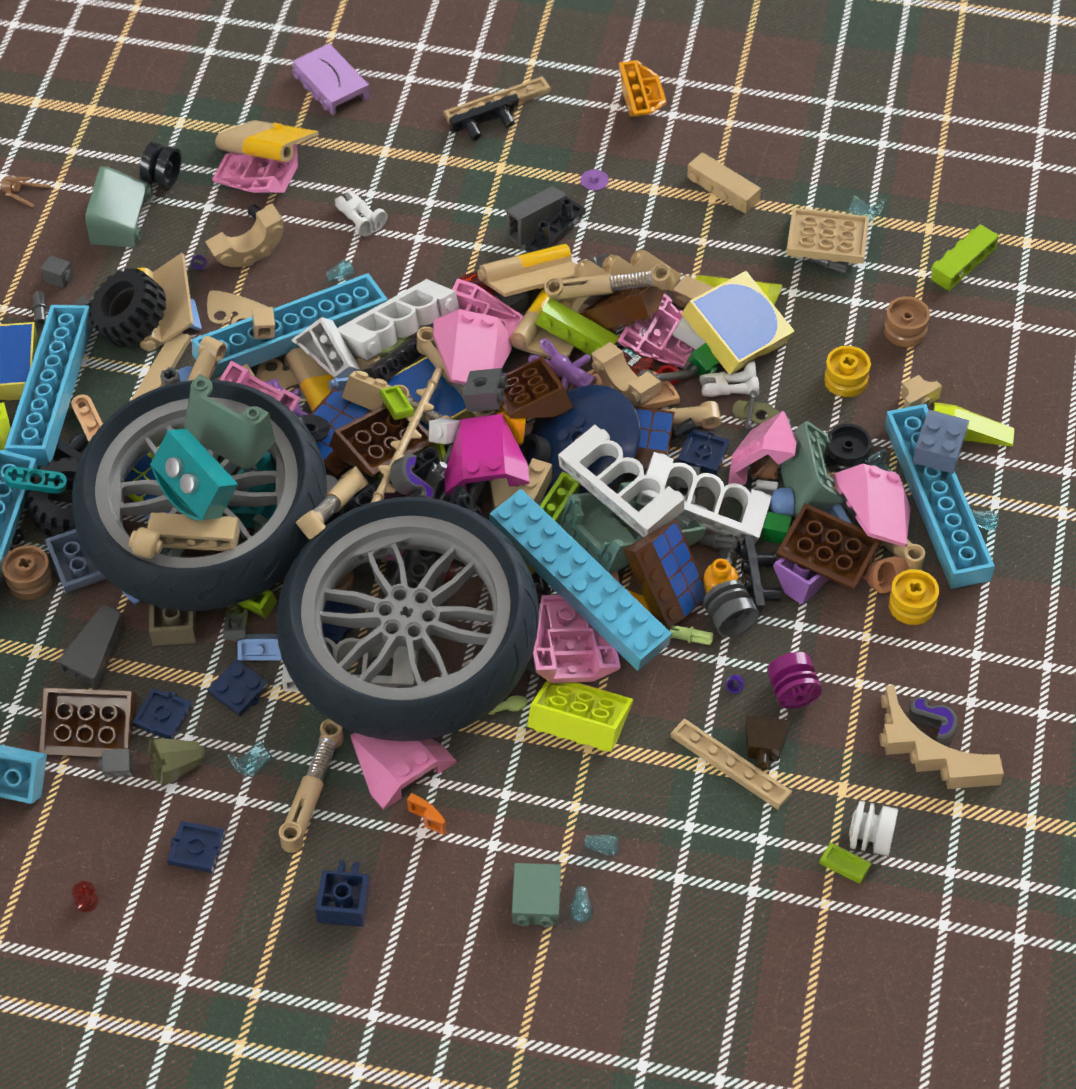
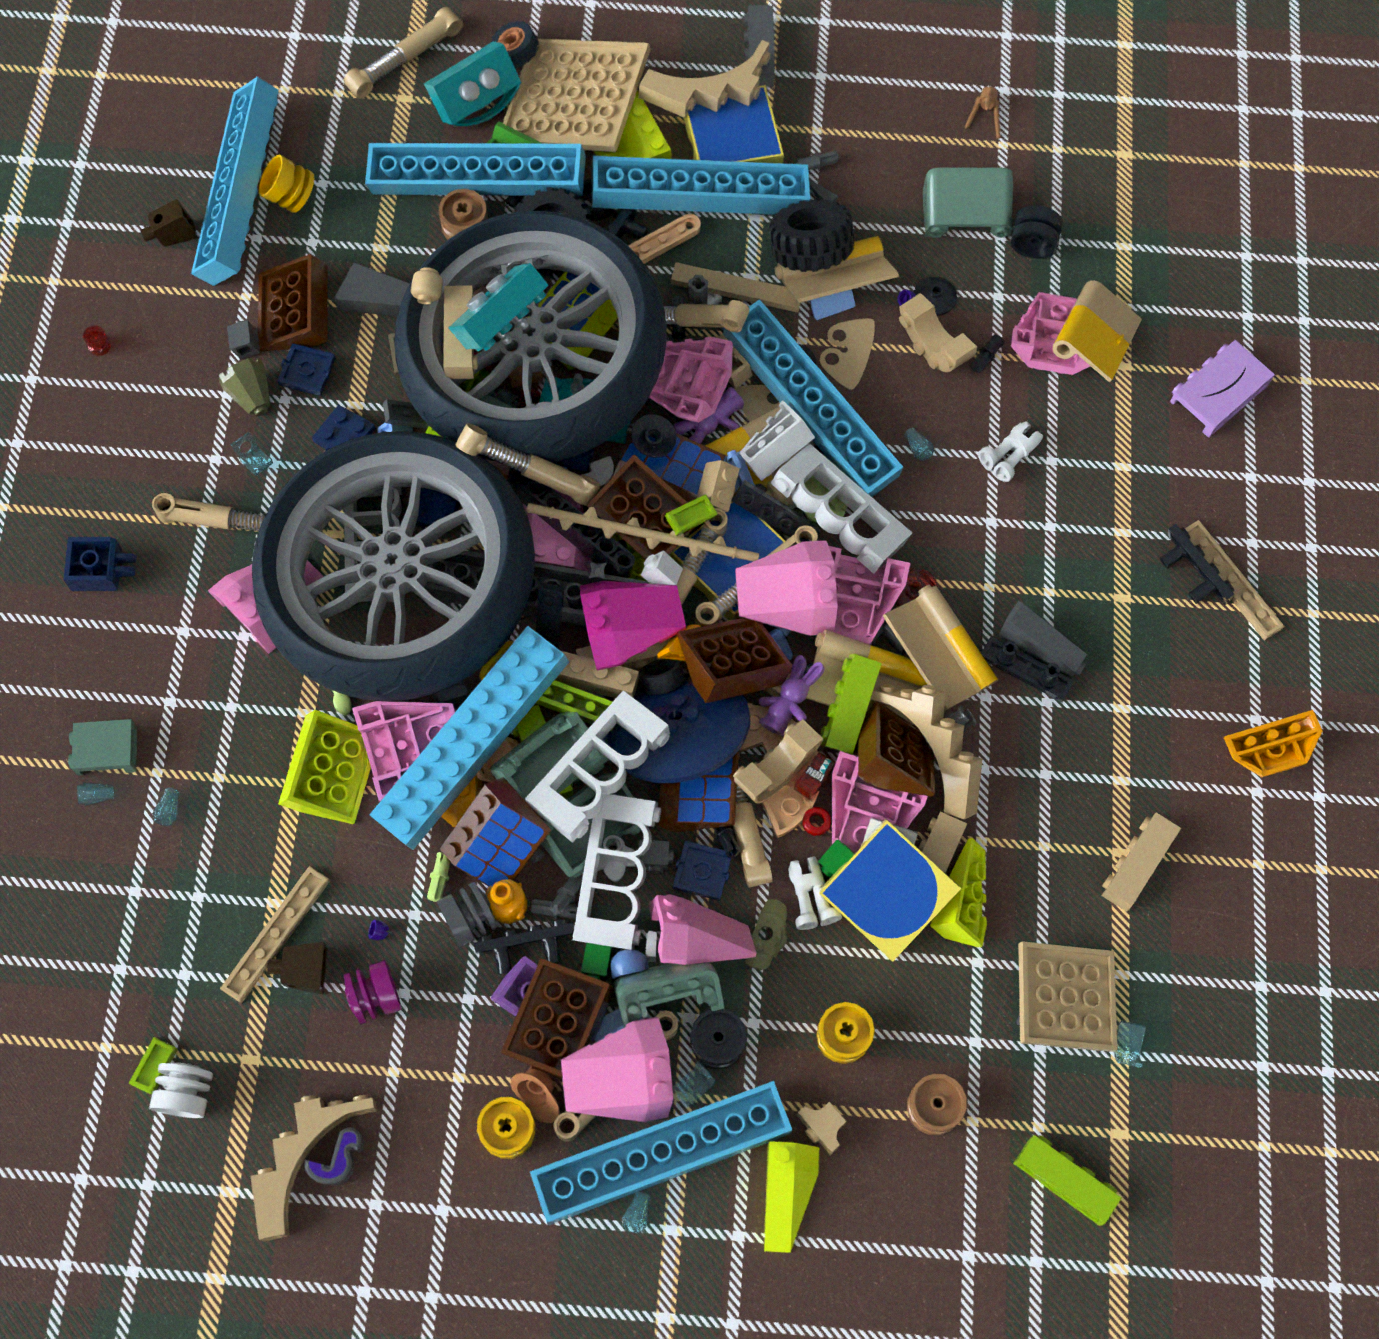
camera: 80 degrees right, 15 degrees up
(51, 475) = (544, 182): teal beam -> none
(57, 271) = (869, 166): dark grey brick -> none
(195, 244) = (947, 296): none -> black dish
(196, 846) = (154, 426): dark blue plate -> none
(233, 436) = (586, 302): sand green windscreen -> none
(263, 323) = (791, 364): tan brick -> none
(406, 481) = (572, 535): dark grey animal -> none
(431, 817) = (192, 636): orange slope -> none
(484, 390) = (717, 603): dark grey brick -> none
(594, 179) = (1123, 708): medium lavender piece -> none
(608, 284) = (900, 724): tan piece -> none
(689, 371) = (786, 797): dark grey hinge -> none
(753, 395) = (789, 920): dark grey hinge -> none
(940, 441) = (727, 1148): sand blue brick -> none

